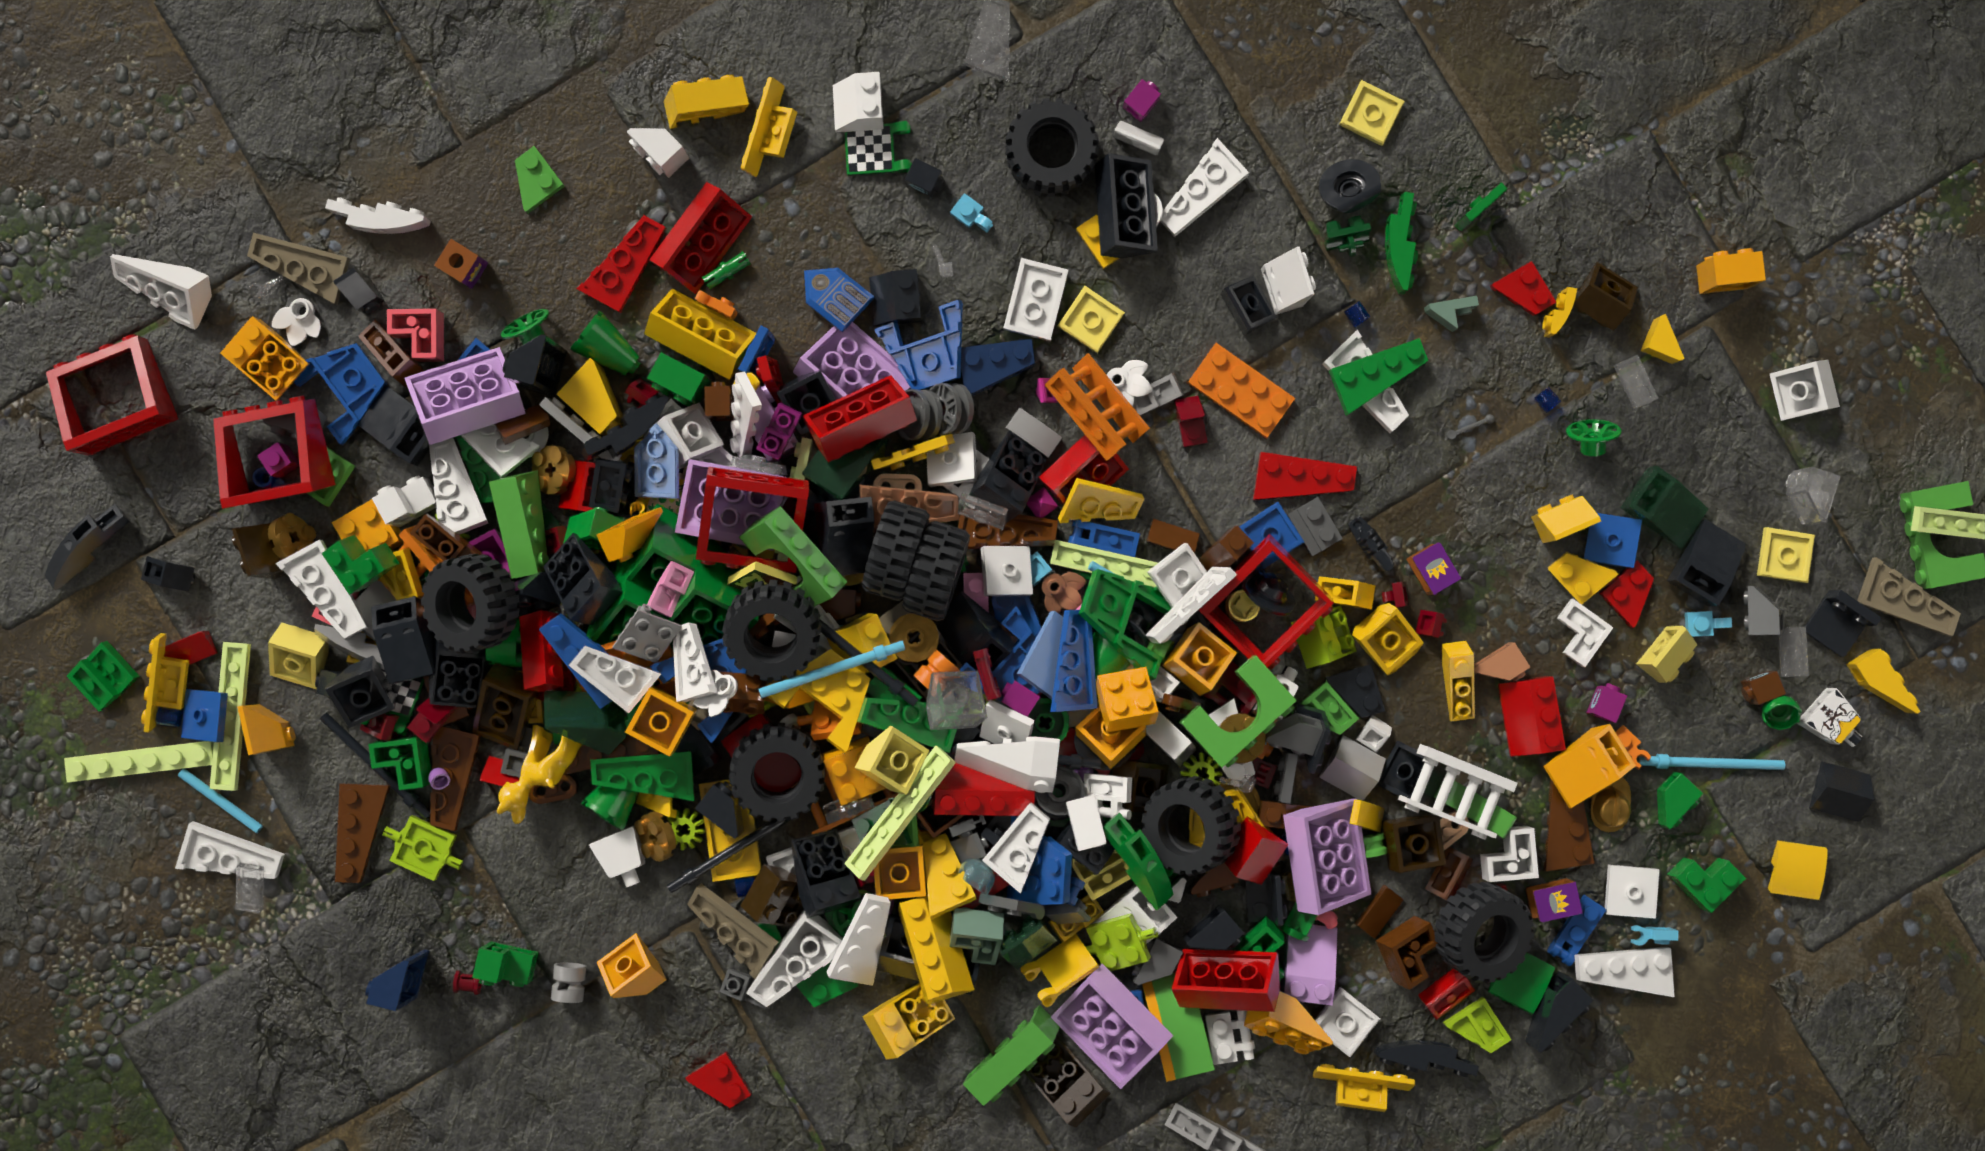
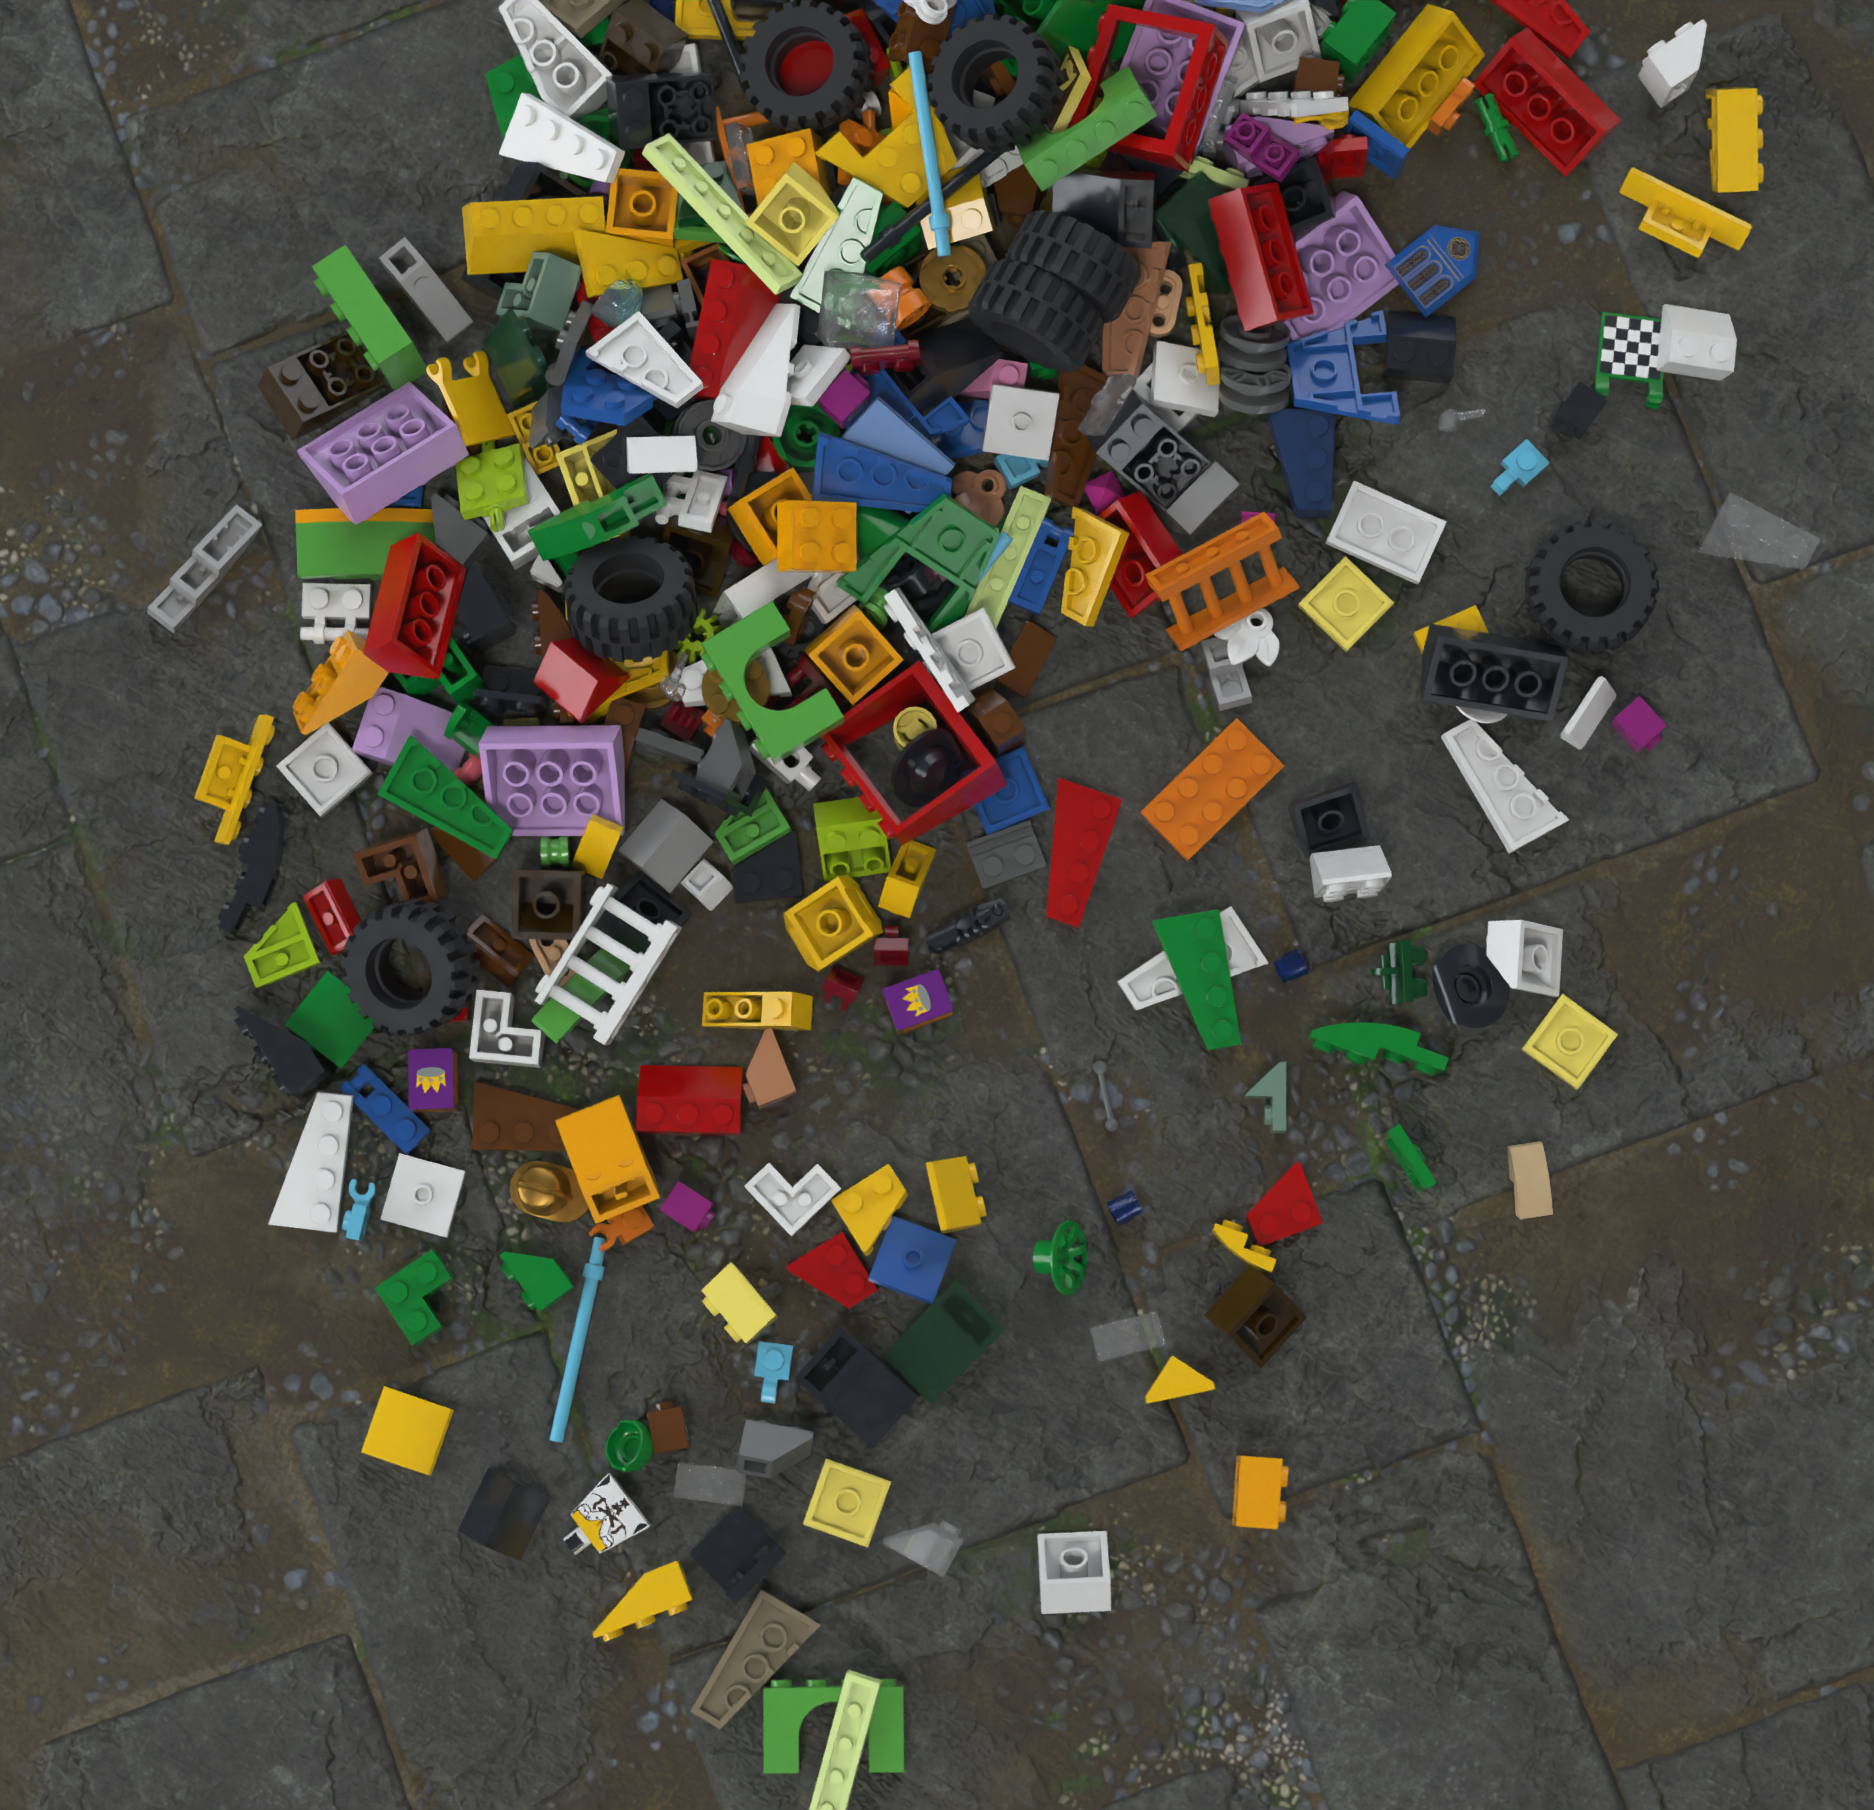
camera: 105 degrees right, 5 degrees down
(906, 1021) = (440, 185): yellow slope -> none
(984, 1019) = (425, 289): none -> light grey slope
(1190, 421) = (1182, 713): dark red slope -> none
(1320, 151) = (1526, 955): none -> white slope
(1355, 937) = (439, 797): none -> green wing
(1475, 122) = (1531, 1180): none -> tan slope

